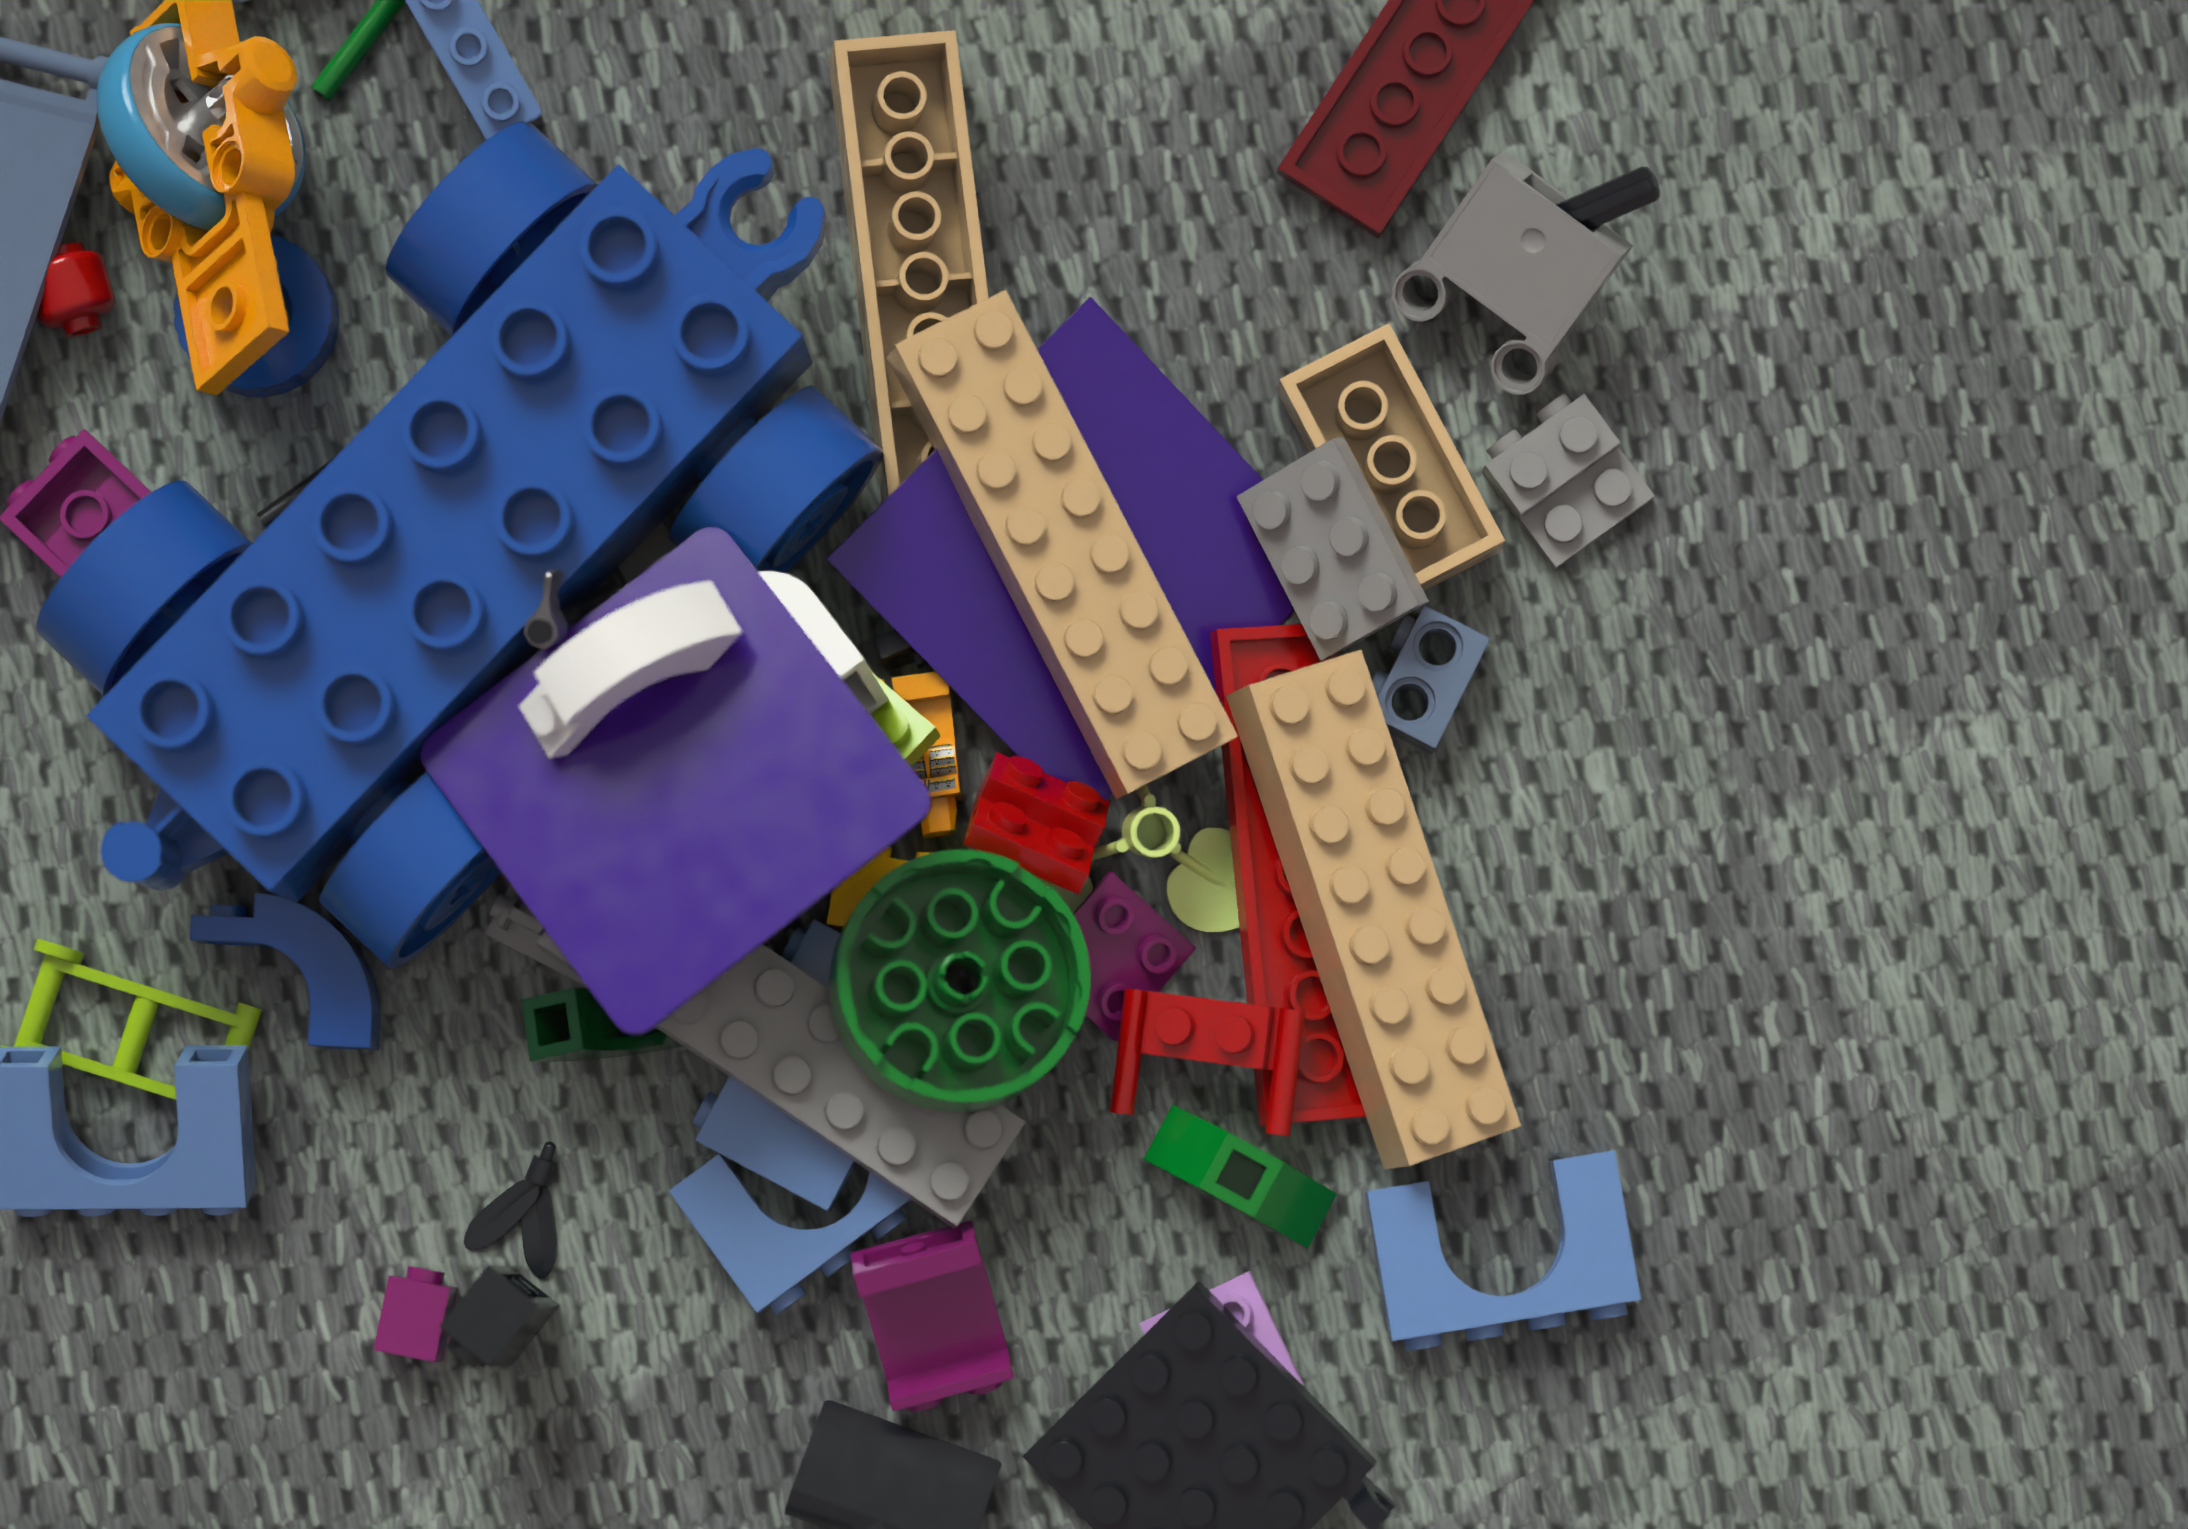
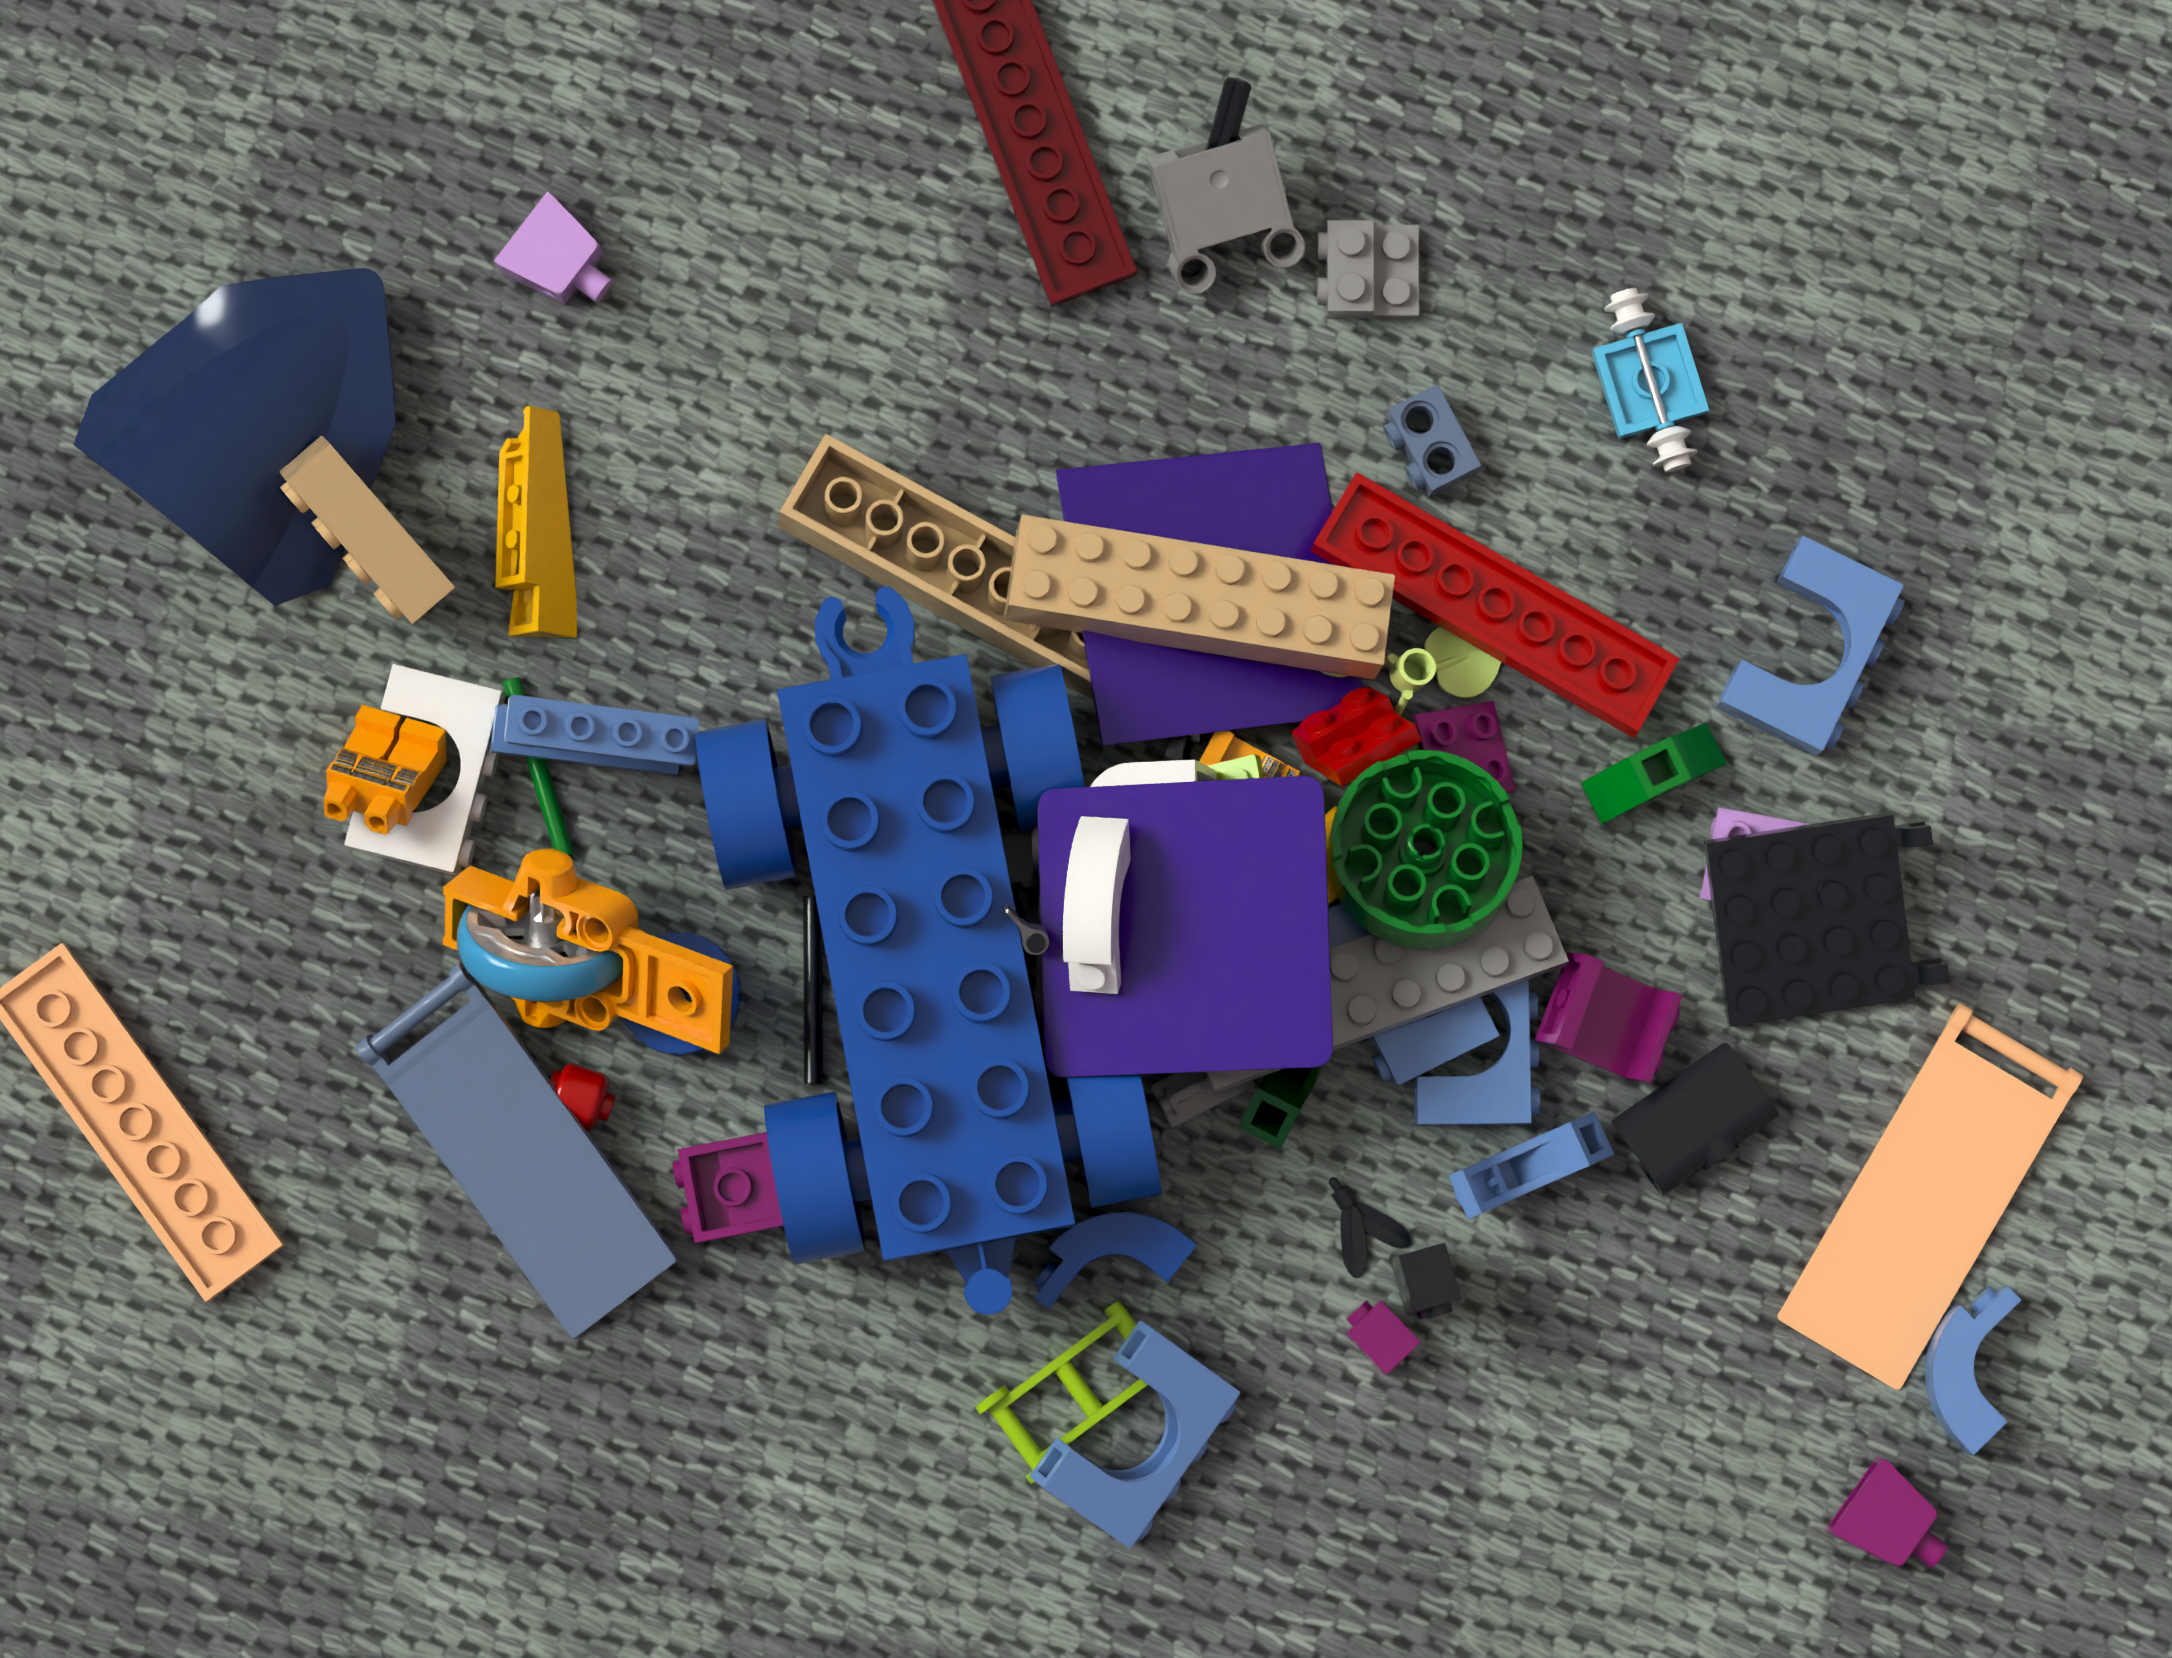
camera: 60 degrees left, 0 degrees up
(709, 1343) = (1530, 1165): none -> medium blue arch
(1209, 1033) = (1558, 725): red plate -> none
(1332, 548) = (1316, 437): light grey plate -> none
(1373, 910) = (1554, 574): tan brick -> none
(1401, 448) = (1287, 368): tan brick -> none
(1668, 866) = (1650, 380): none -> medium azure plate

